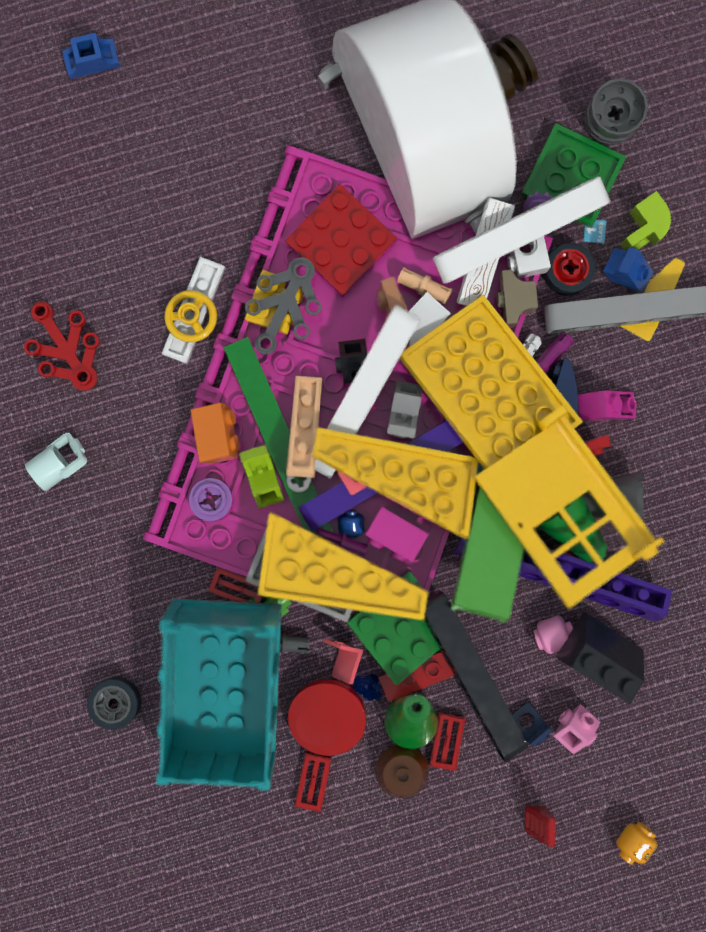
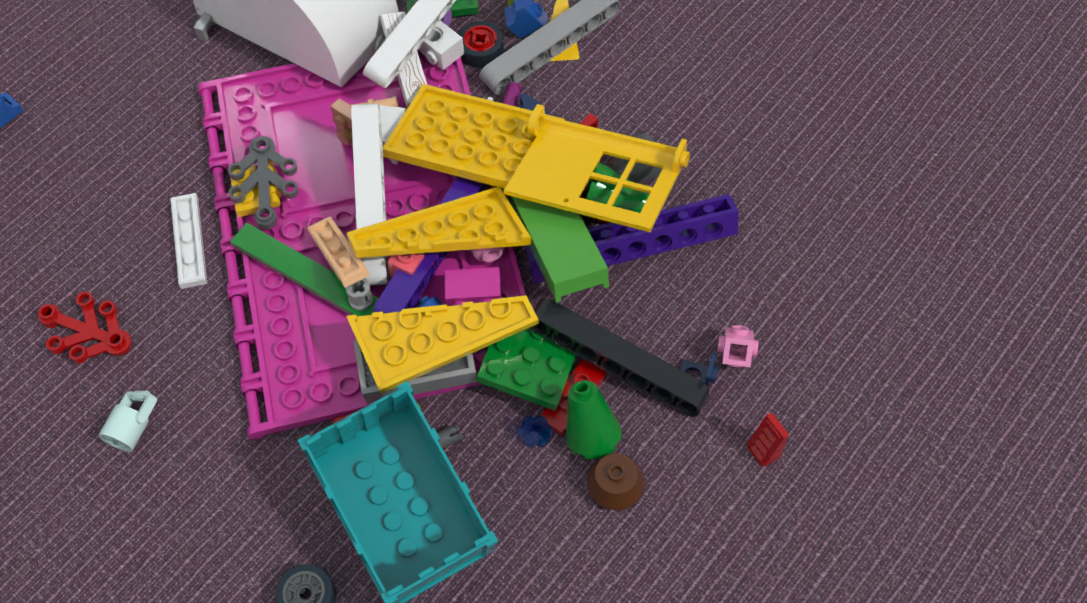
camera: 30 degrees left, 25 degrees down
(171, 316) = (186, 238): yellow piece -> none
(199, 494) = (291, 350): medium lavender gear -> none
(215, 433) = (262, 304): orange brick -> none
(262, 476) = (322, 310): lime brick -> none
(317, 759) = (551, 569): red tile -> none
(327, 717) = (515, 476): red piece -> none
(341, 240) = (285, 115): red plate -> none
(346, 661) = (500, 418): coral bracket -> none
(351, 358) = (343, 185): black brick -> none
(405, 410) = (415, 193): light grey brick -> none
(442, 764) = (647, 455): red tile -> none
(515, 297) = (450, 72): dark tan brick -> none
(552, 633) = (663, 291): bright pink head -> none
(596, 233) = (485, 14): medium azure sticker -> none
(604, 657) = (716, 281): black slope -> none
(607, 406) = (577, 106): dark pink slope -> none
(636, 843) = (860, 406): light orange head -> none

